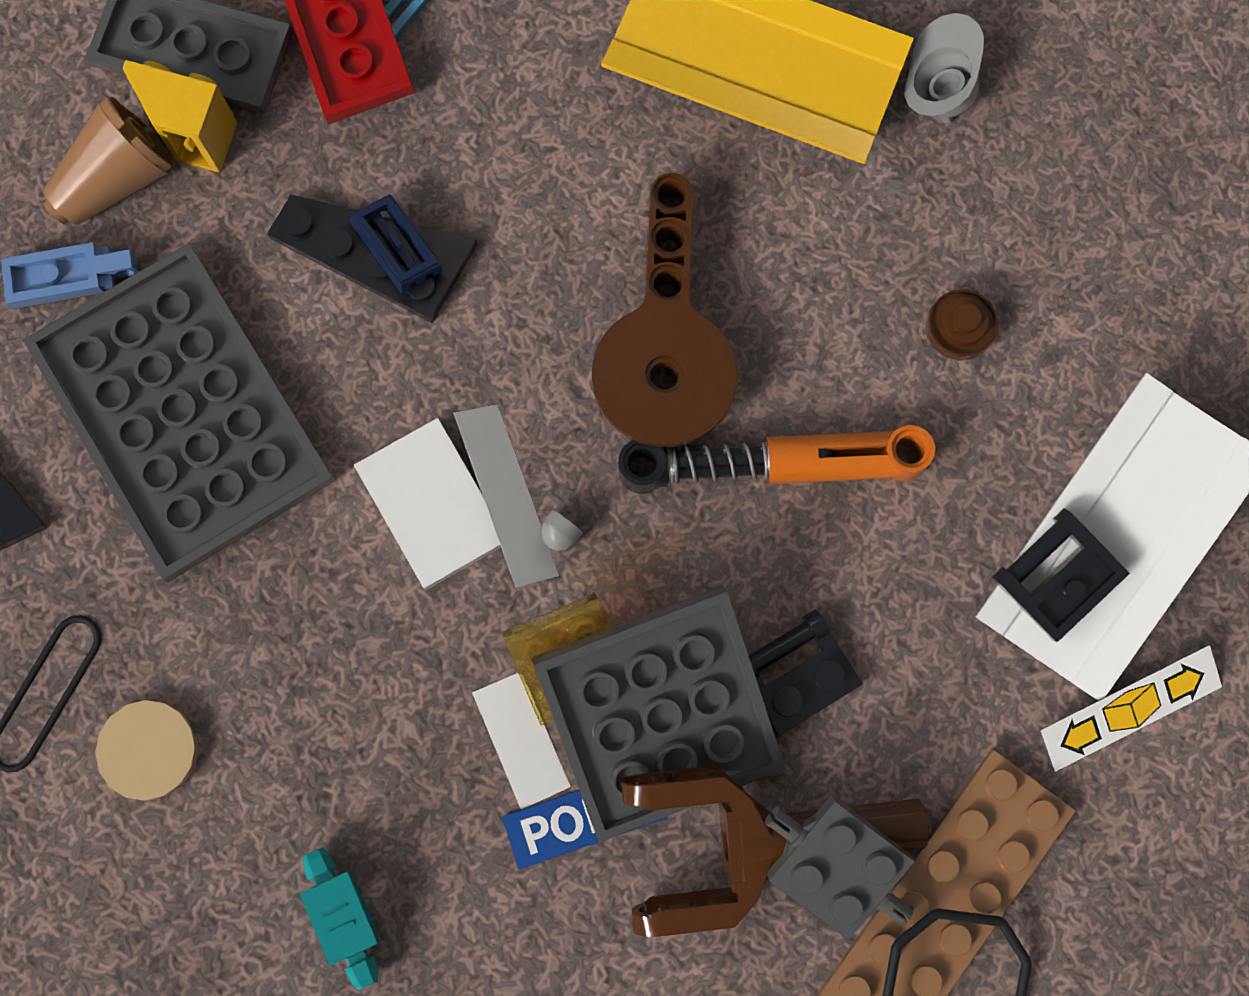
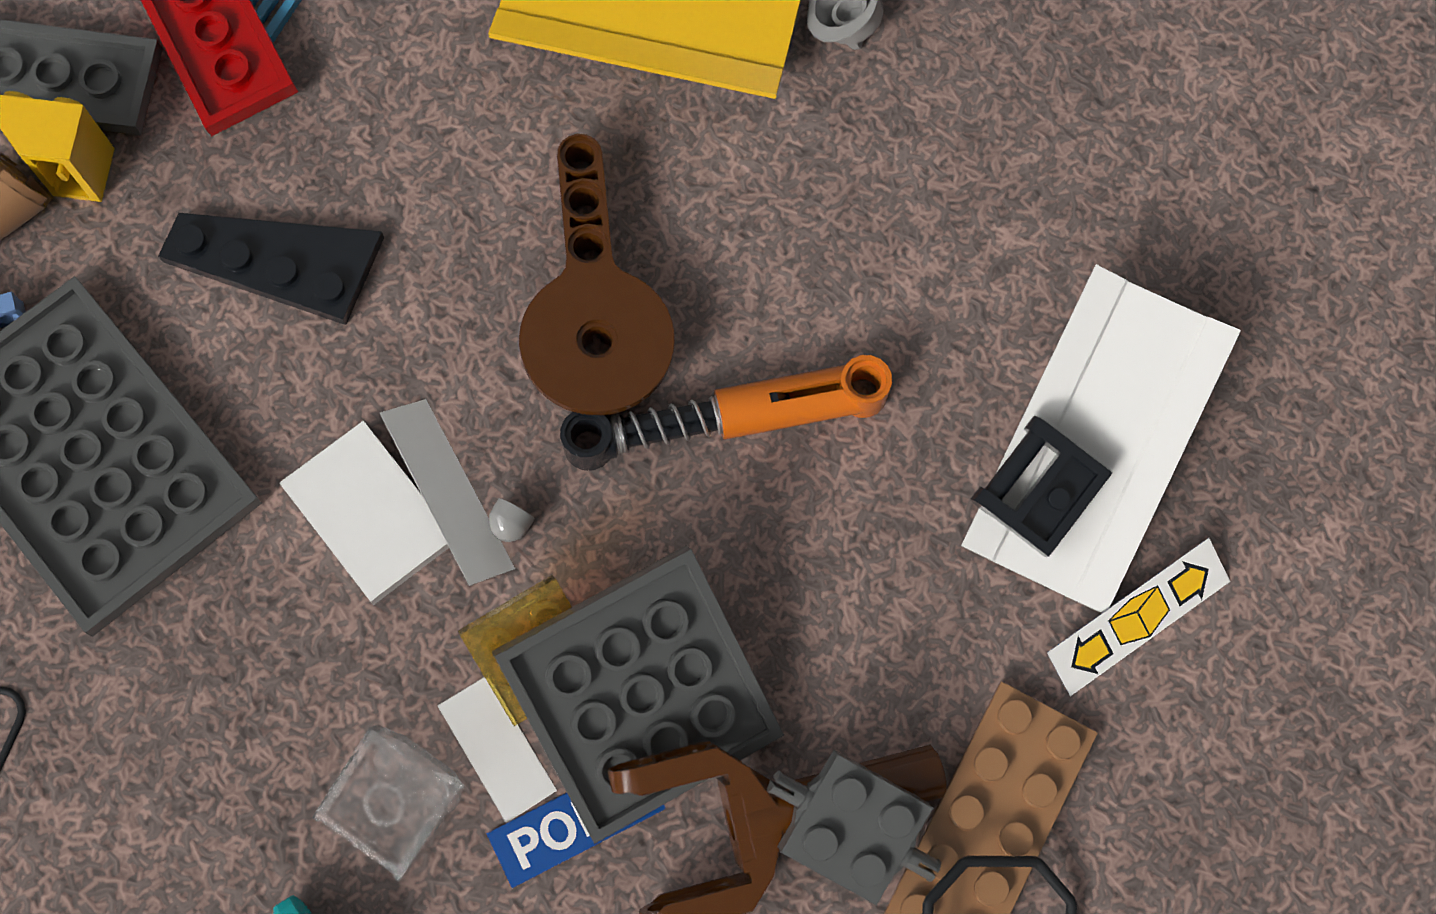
camera: 10 degrees left, 5 degrees down
(146, 750) = (88, 821): tan tile -> none
(415, 272) = (318, 272): dark blue tile -> none
(420, 774) = (390, 799): none -> clear slope
(808, 685) = (798, 642): black plate -> none
(961, 324) = (901, 248): reddish brown plate -> none

